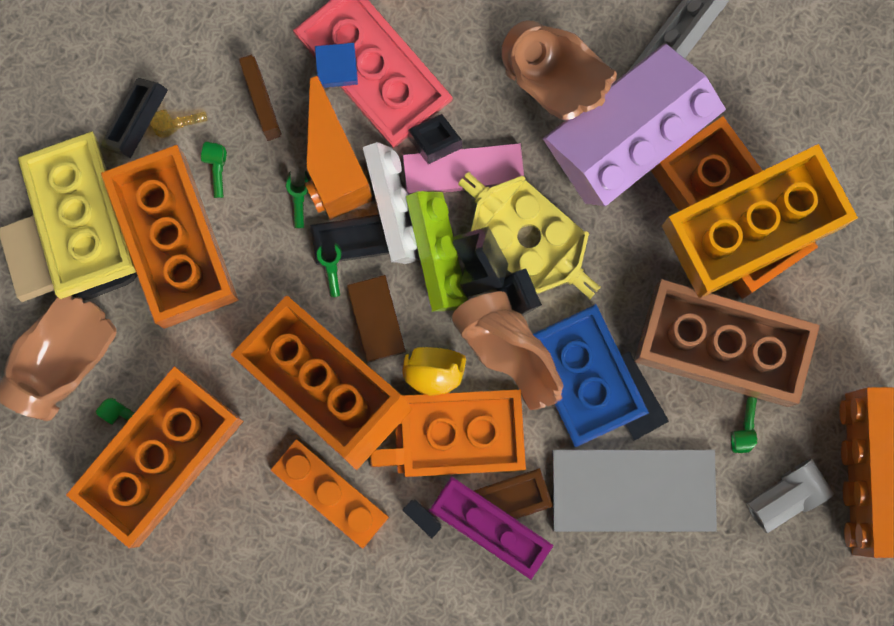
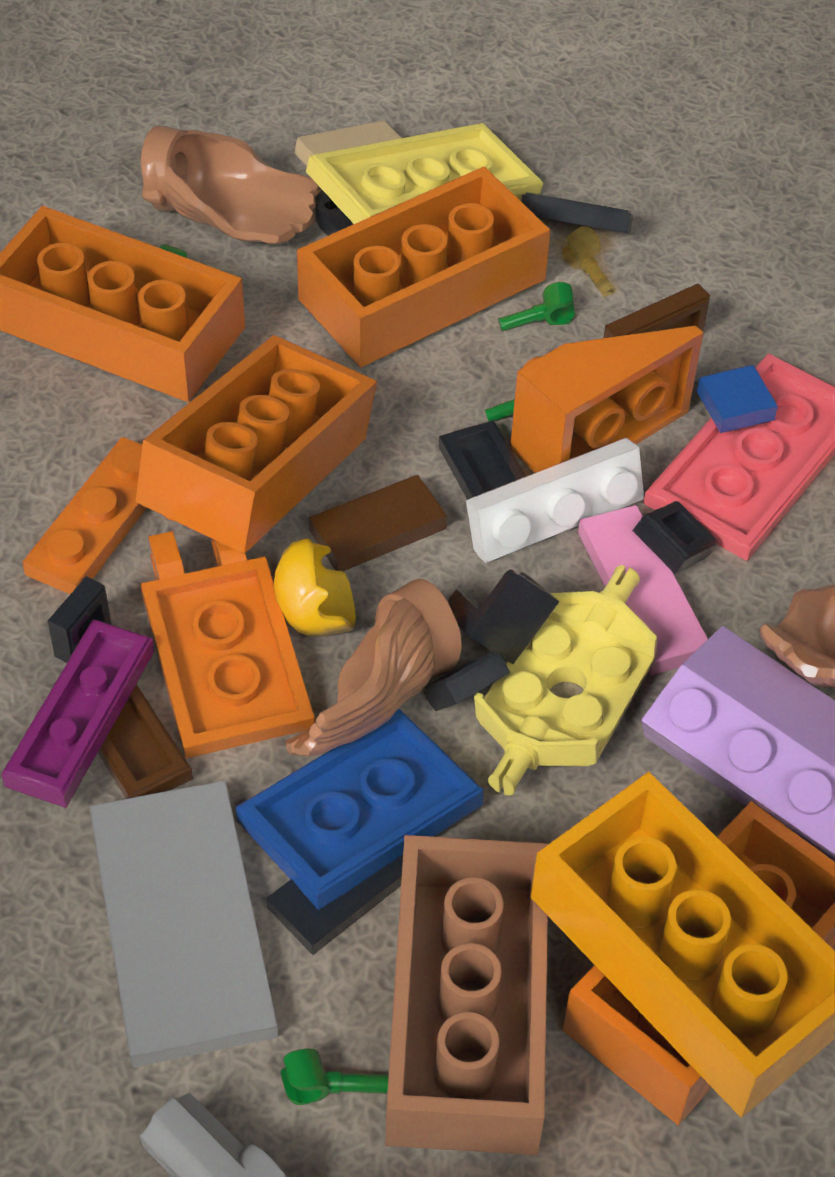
camera: 75 degrees right, 30 degrees down
(331, 270) = (452, 441): green hand -> none
(436, 250) = (544, 549): lime plate -> none

